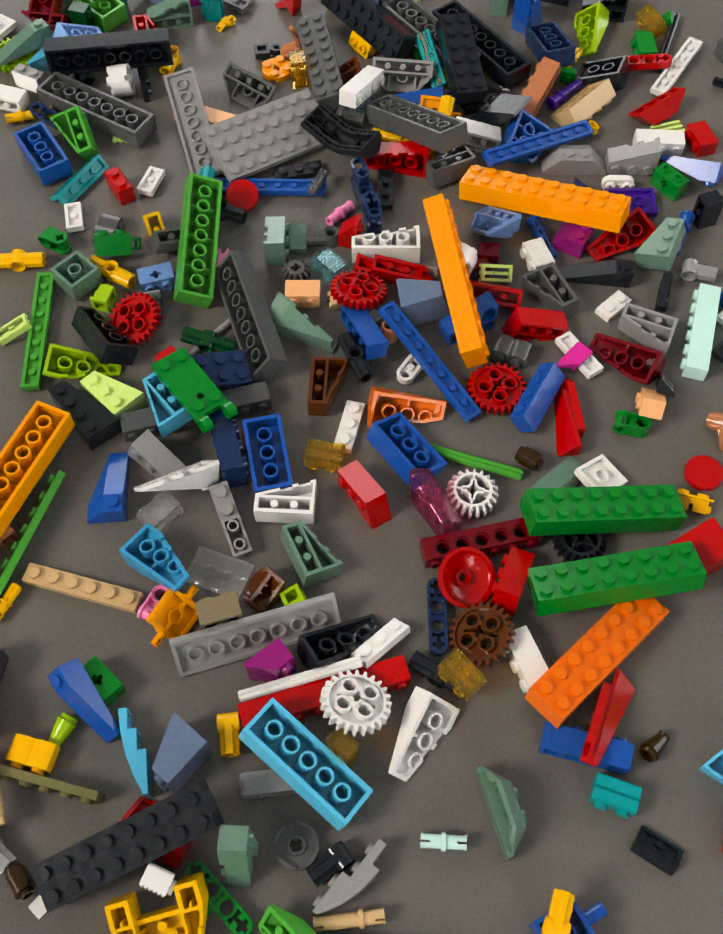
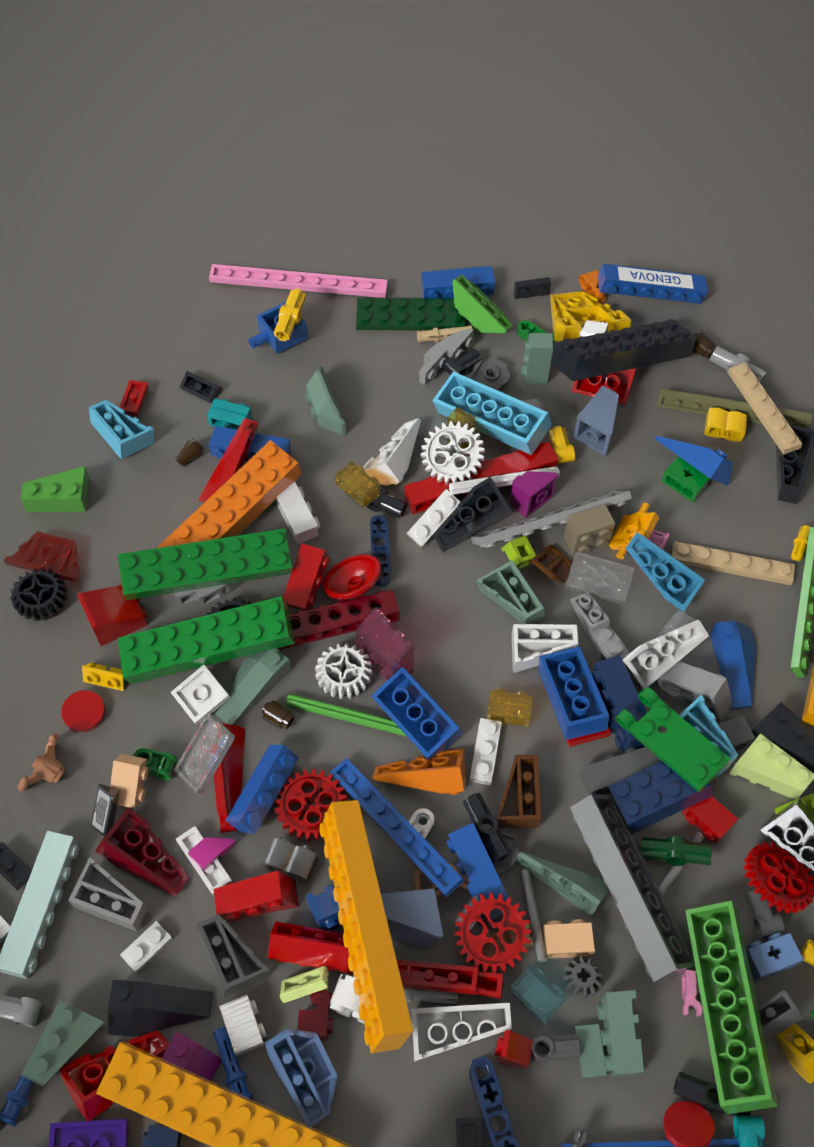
camera: 175 degrees right, 0 degrees up
(62, 729) = (708, 440): lime cone -> none
(137, 758) = (636, 425): medium azure slope -> none
(325, 306) = (533, 916): none -> light grey bar
(340, 212) = (534, 1102): bright pink pin -> none
(365, 494) = (463, 662): red wedge -> none
(443, 841) = (373, 382): light aqua pin -> none
(487, 616) = (343, 523): reddish brown gear -> none
(589, 417) = (204, 753): none -> clear plate
(664, 292) = (74, 967): black hinge -> none

